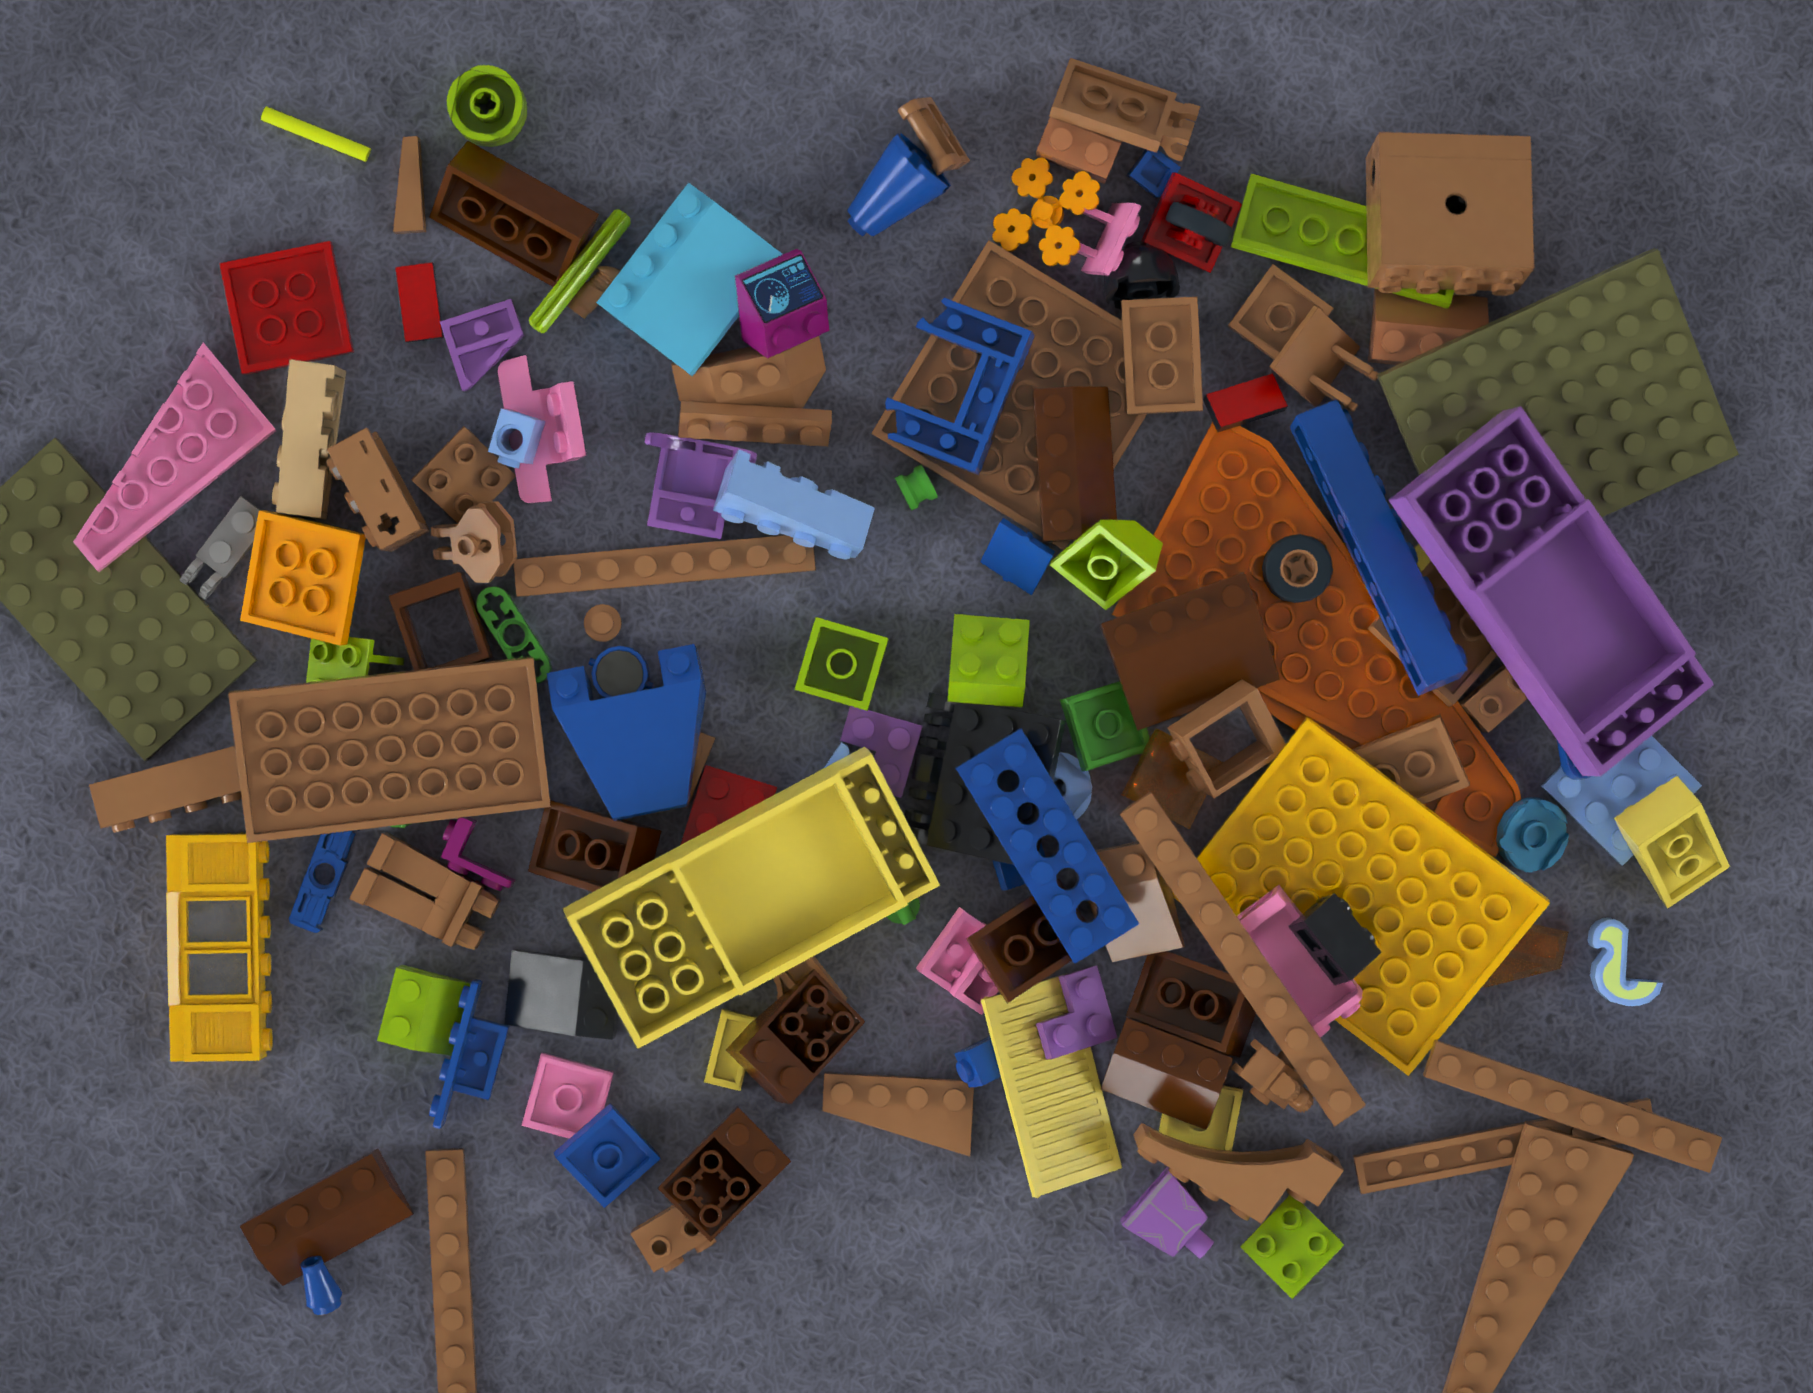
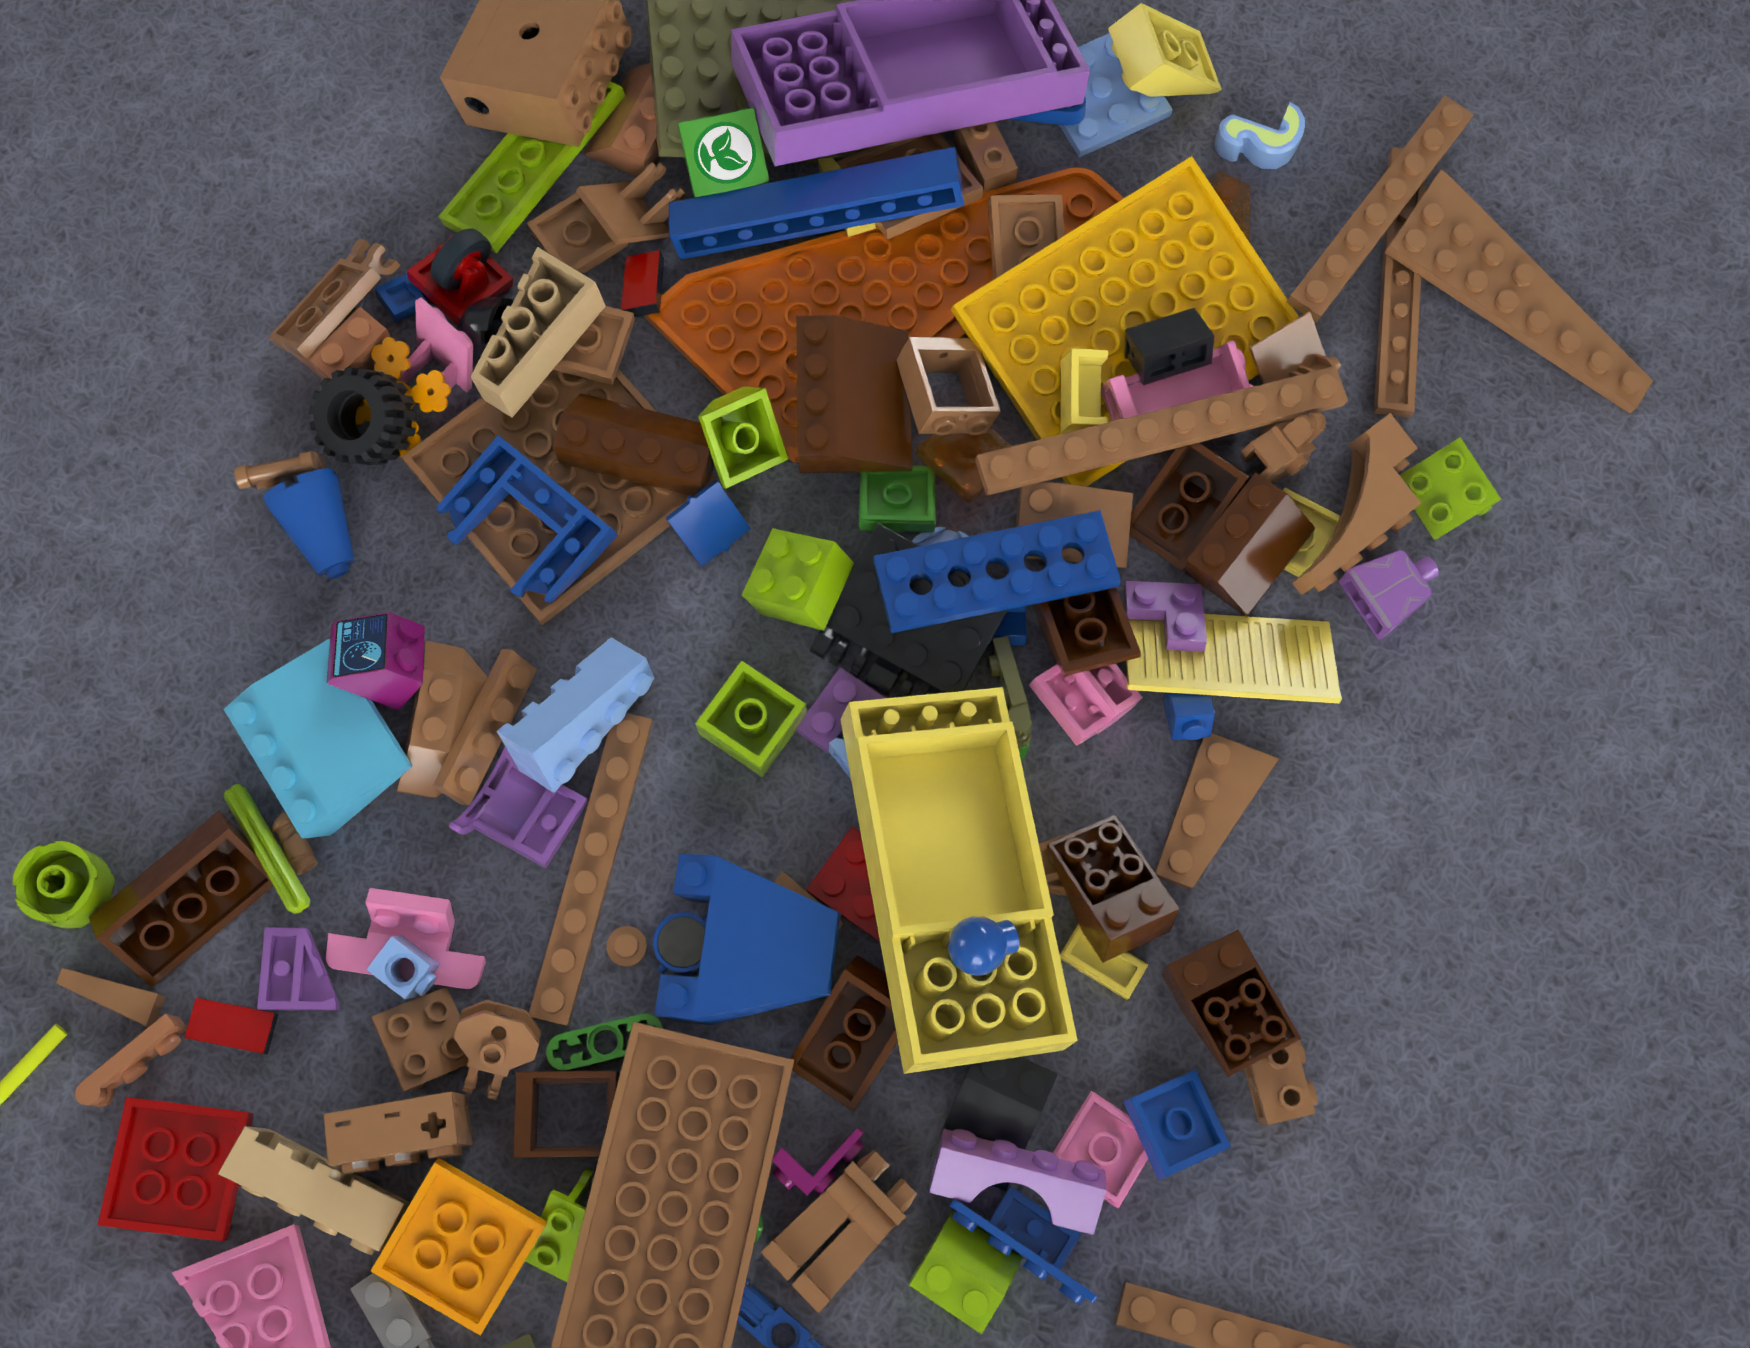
camera: 75 degrees left, 15 degrees down
(359, 231) = (130, 1061): none -> nougat plate
(512, 989) = (971, 1164): none -> arch
(687, 942) = (982, 944): none -> blue piece
(916, 487) = (607, 597): bright green wheel -> none
(970, 877) = (1003, 665): none -> olive hinge
(989, 176) = (336, 413): none -> black tyre
(1142, 330) = (536, 331): none -> tan wedge
(1260, 870) = (1081, 389): none -> light yellow panel
(1310, 569) = (810, 266): black wheel -> none
(1375, 1062) = (1291, 351): none -> medium nougat hinge
(1397, 439) = (723, 152): none -> slope
(1532, 834) = (1119, 168): dark azure tile -> none

